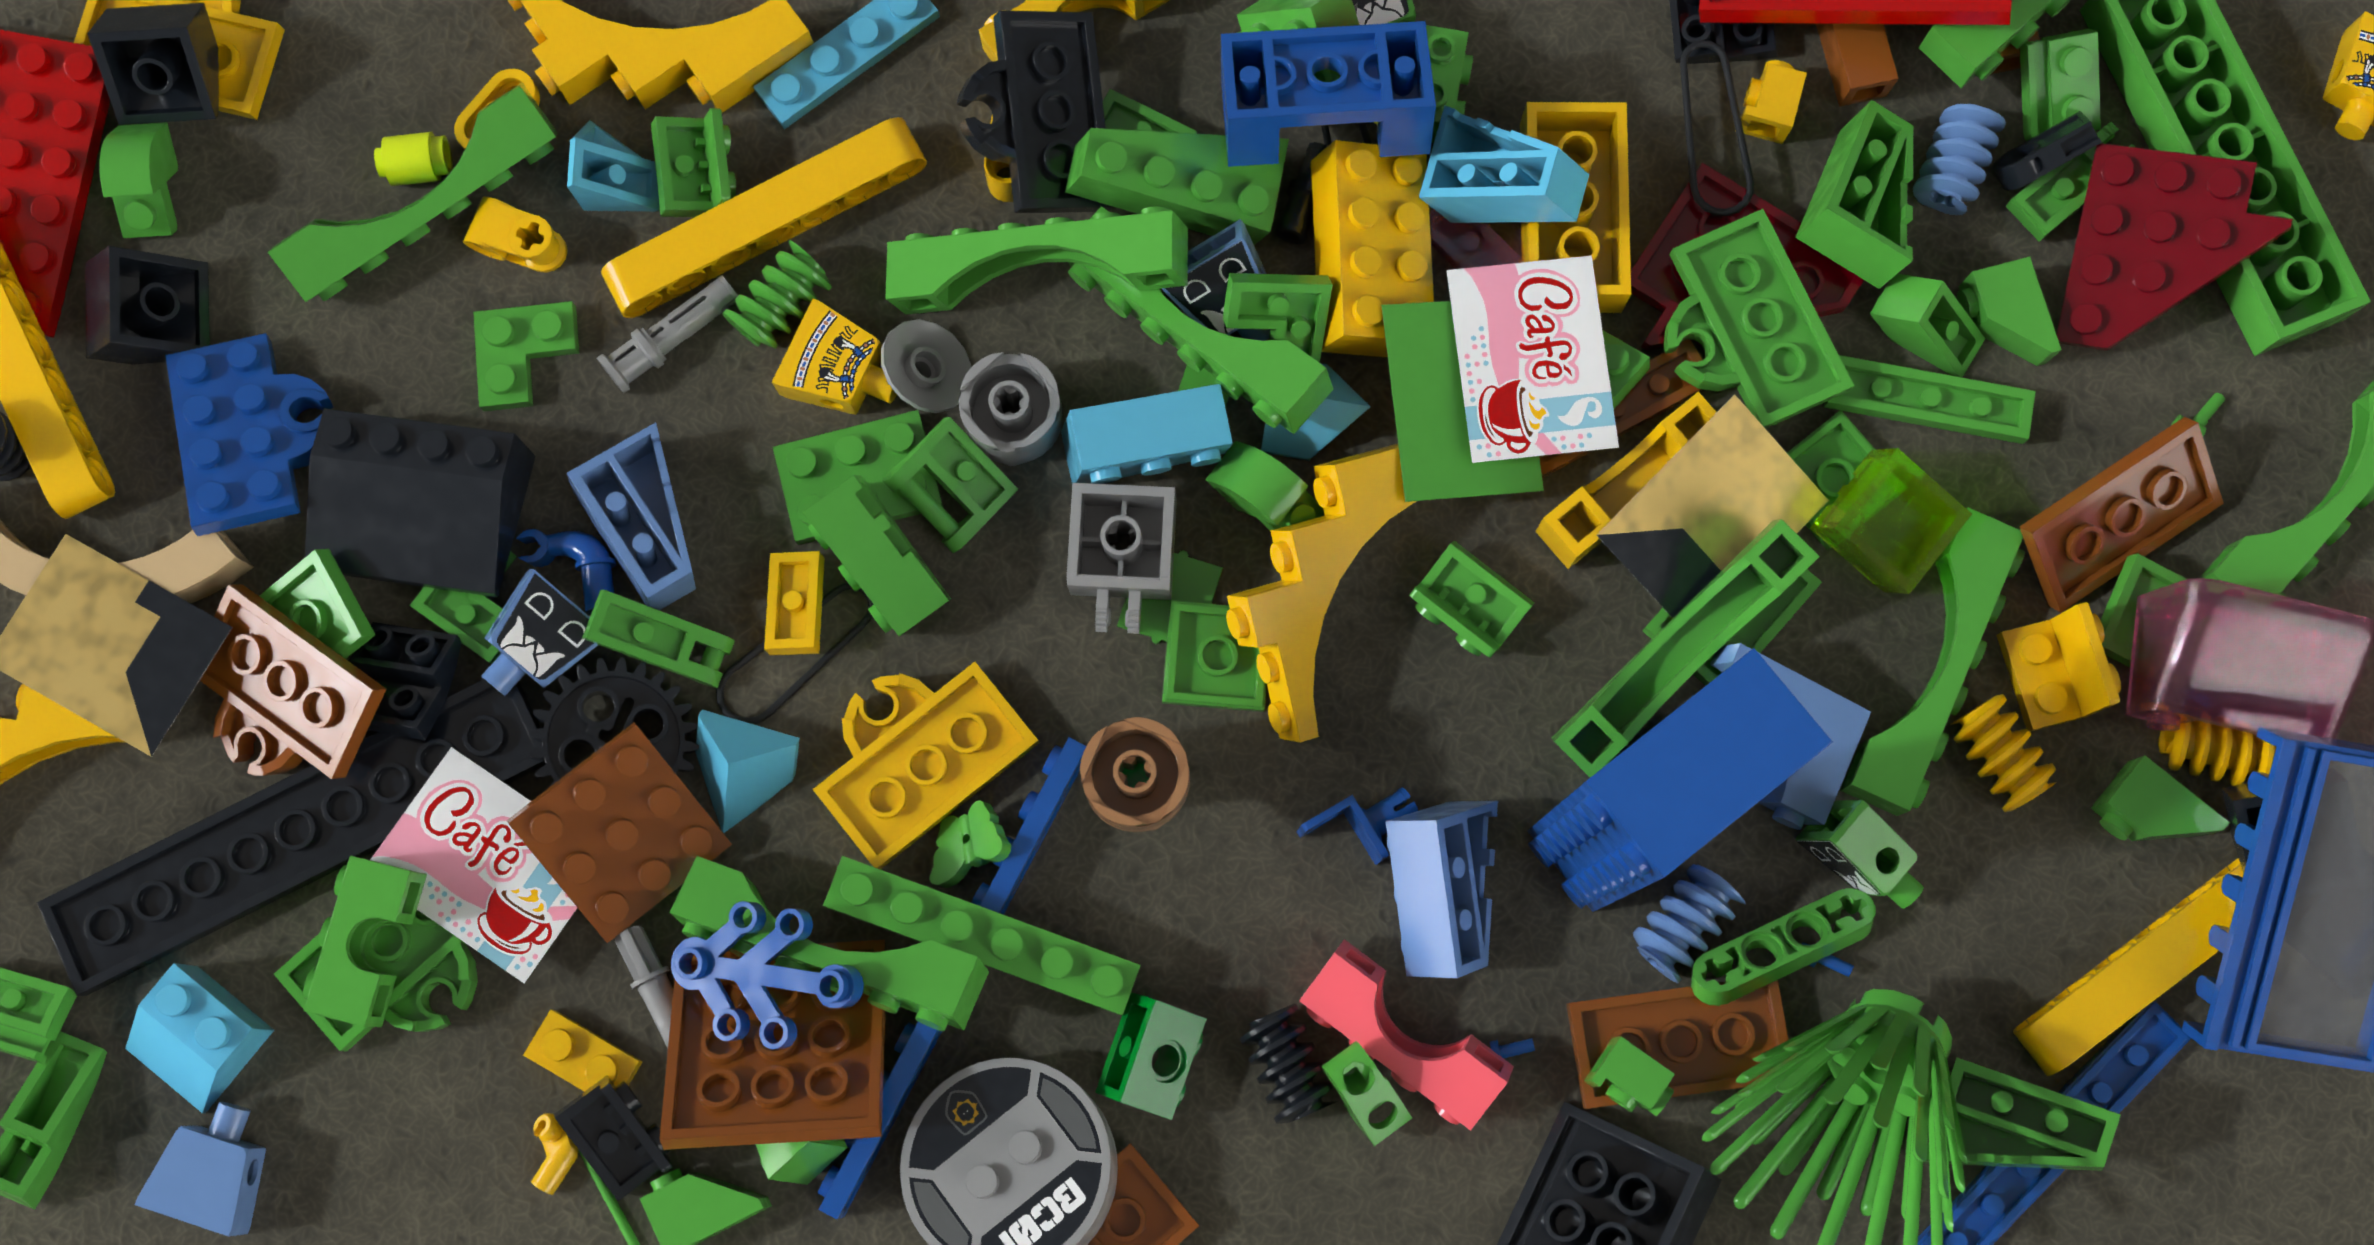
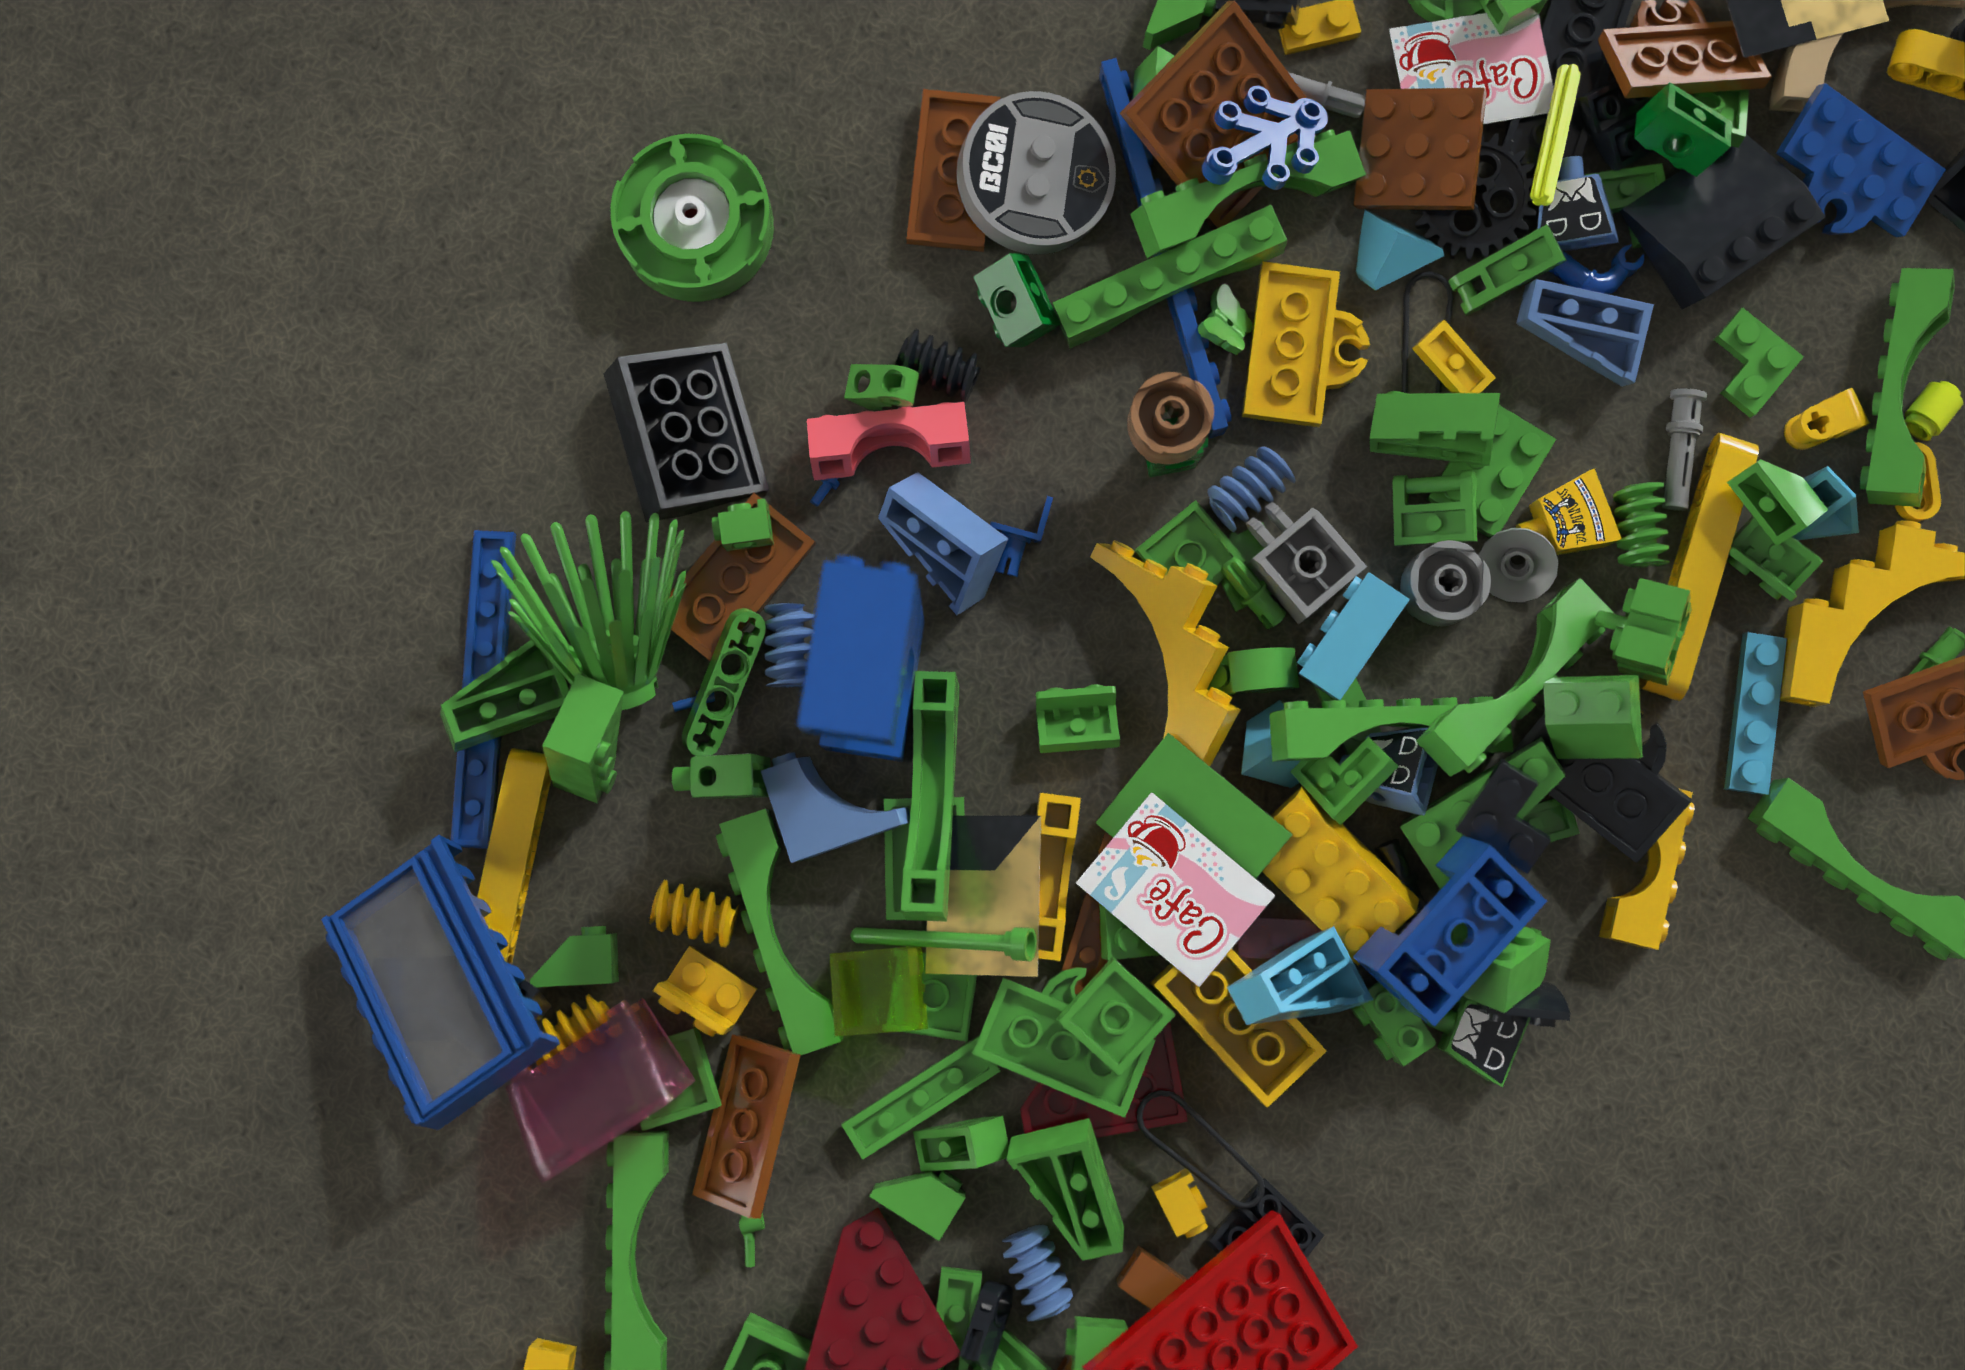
camera: 130 degrees right, 5 degrees up
(367, 607) = (1683, 130): none -> green brick
(483, 720) = (1555, 135): none -> neon yellow axle
(643, 195) = (1777, 500): none -> bright green slope
(882, 190) = (1650, 631): none -> bright green brick
(1009, 157) = (1594, 716): none -> bright green slope
(1102, 665) = (1249, 485): none -> medium blue piece
(1189, 149) = (1495, 821): none -> black plate
(1194, 564) = (1253, 593): none -> bright green axle
(1695, 295) = (1115, 1016): none -> bright green plate
(1729, 436) = (1018, 943): none -> bright green piece
(1977, 1005) = (585, 739): none -> bright green wedge

